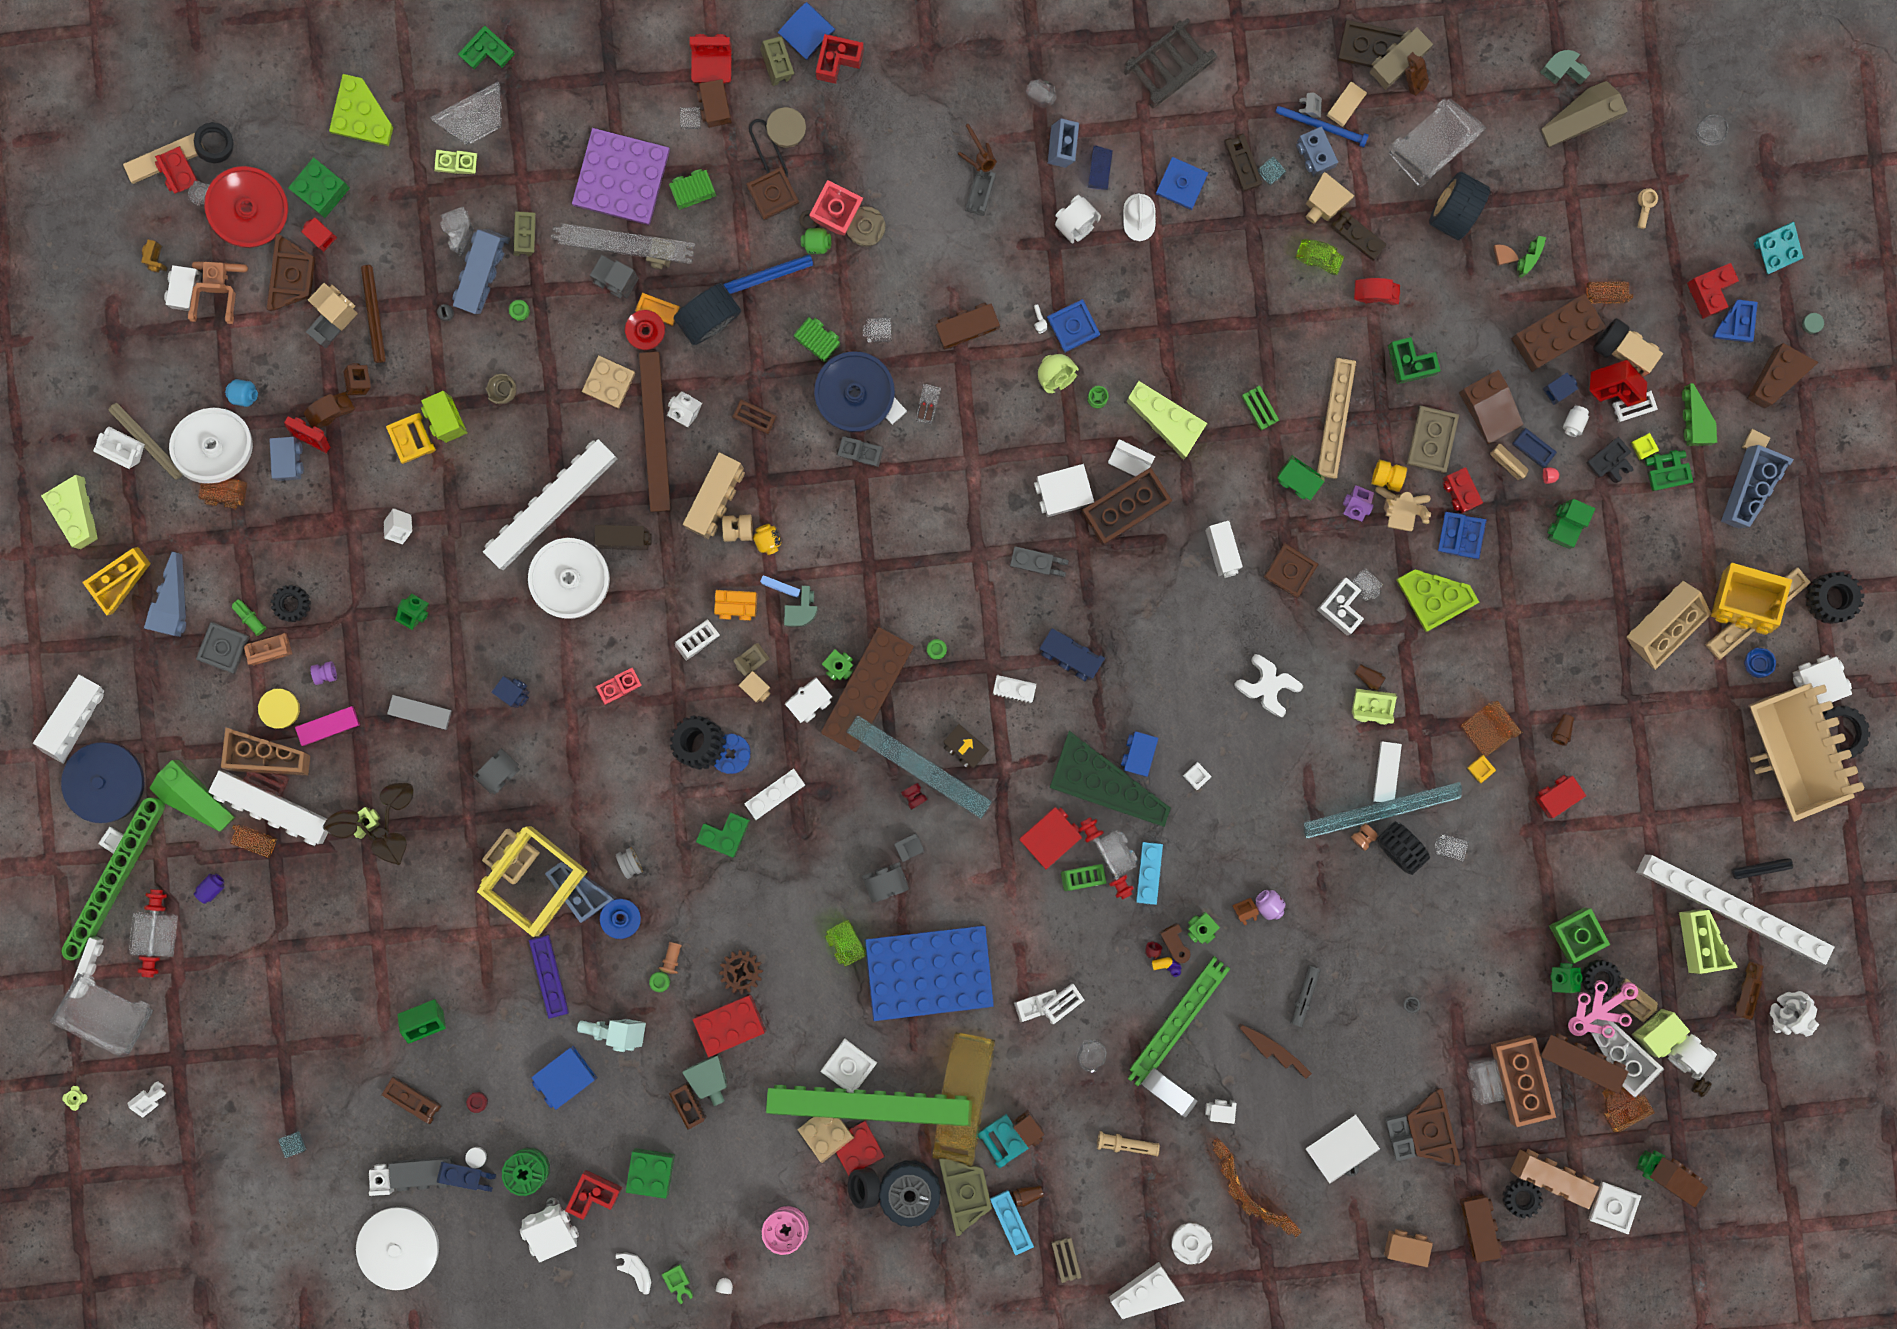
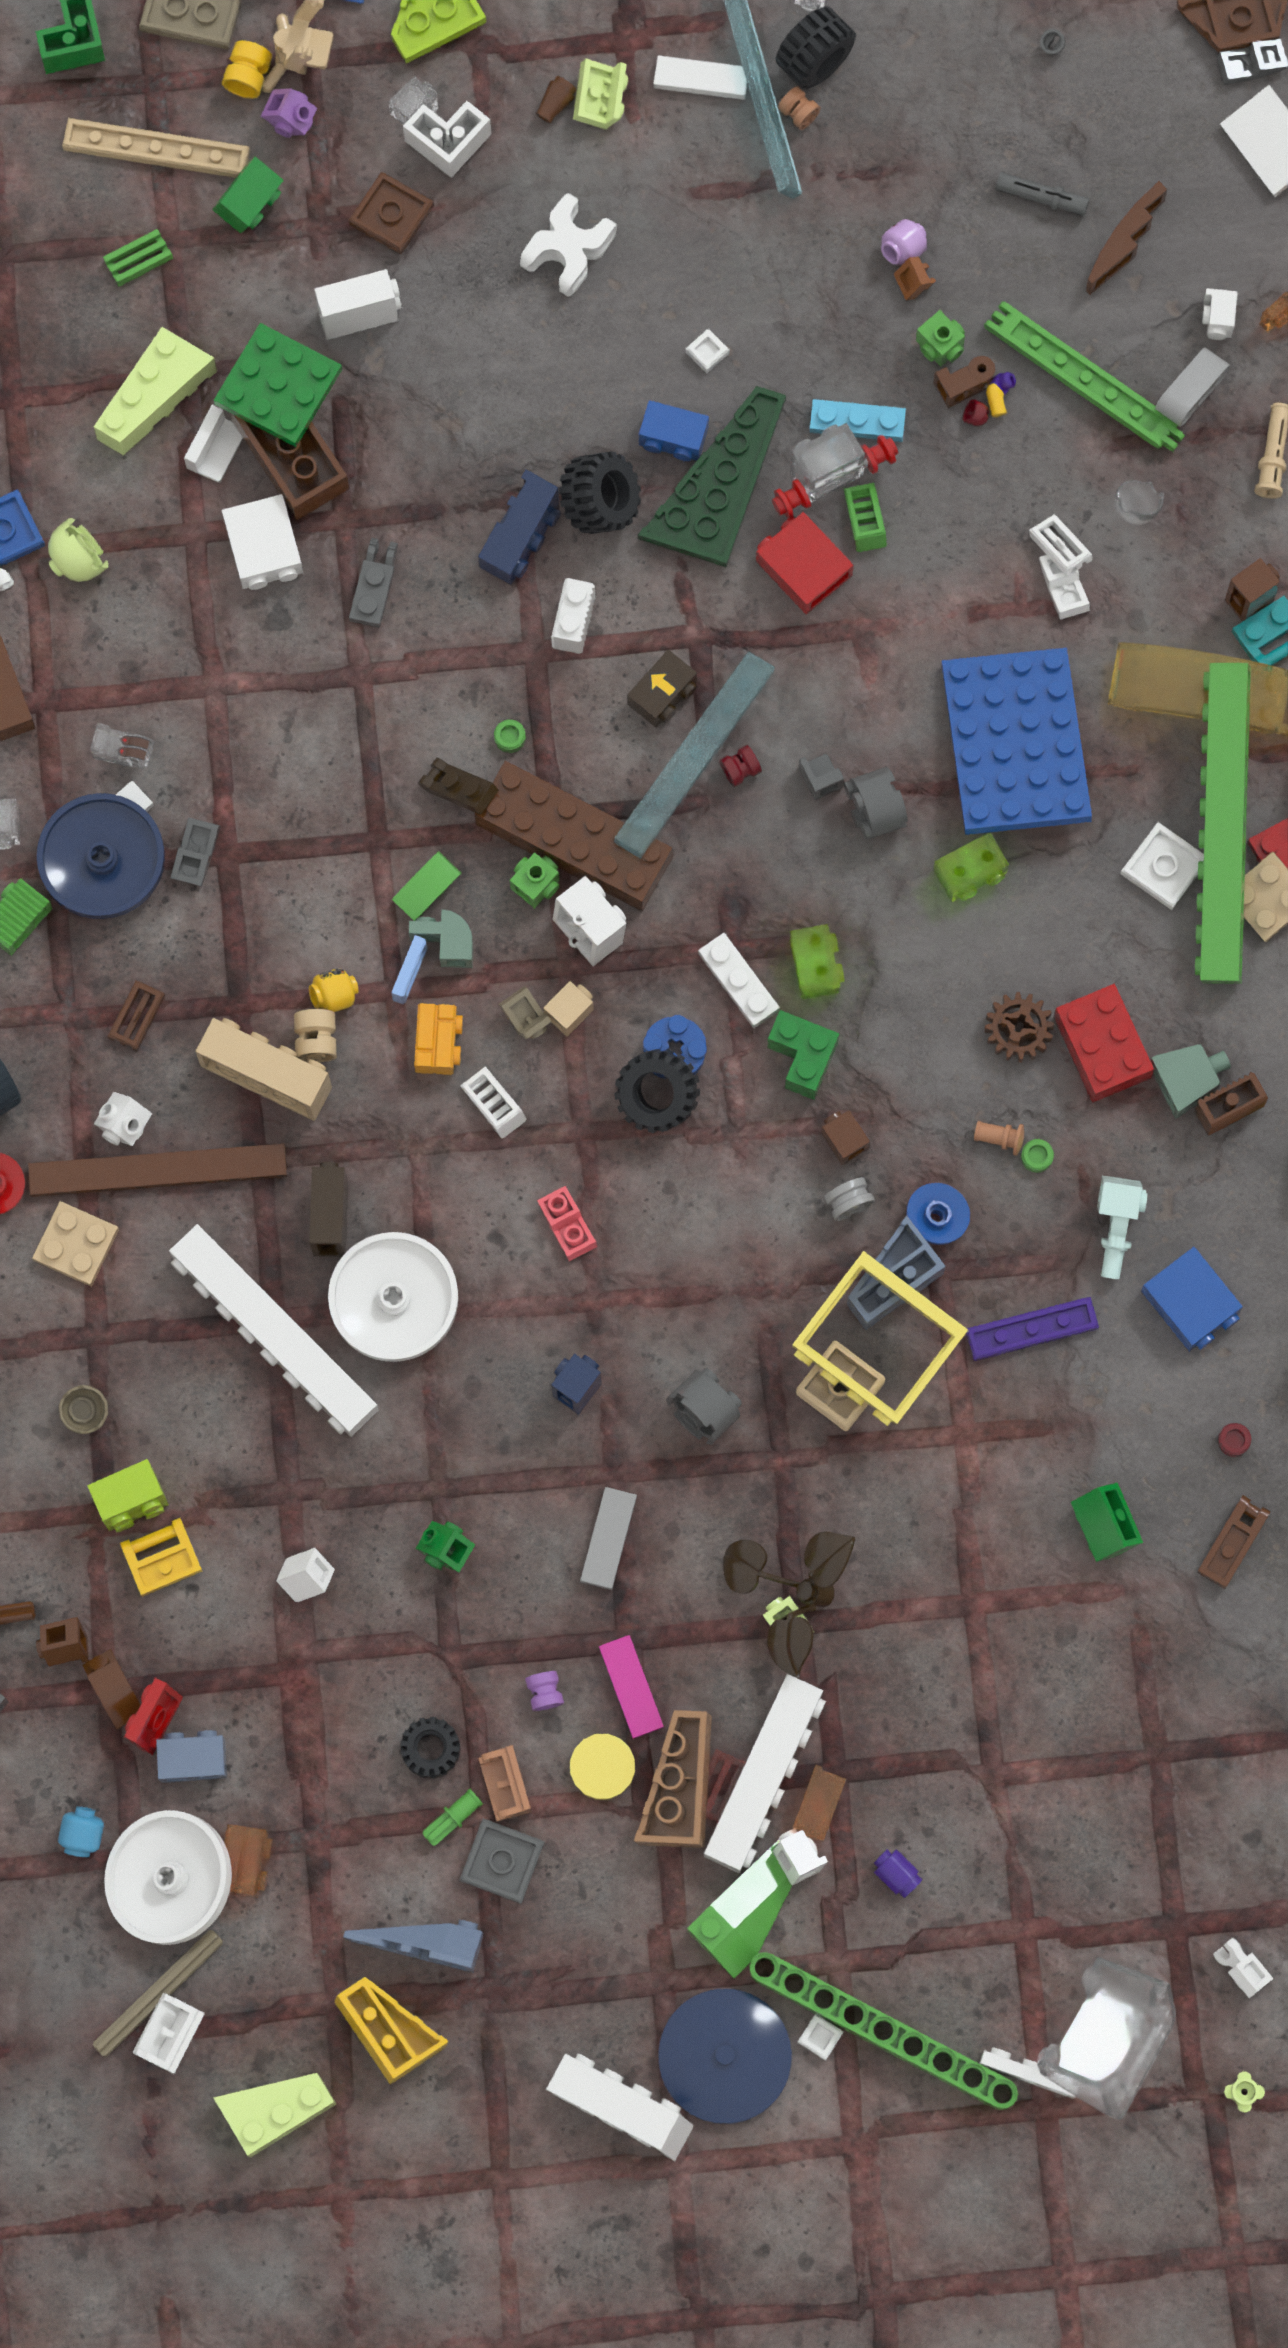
camera: 85 degrees left, 10 degrees down
(152, 933) = (972, 1959): clear brick -> none
(218, 828) = (798, 1856): none -> white brick
(669, 860) = (845, 1136): none -> reddish brown brick
(784, 843) = (815, 961): none -> clear neon green brick
(835, 597) = (426, 886): none -> bright green slope
(898, 617) = (458, 786): none -> dark brown plate
(1093, 706) = (600, 492): none -> black tyre
(1097, 397) = (113, 486): bright green wheel -> none
(1165, 498) = (278, 384): none -> green plate

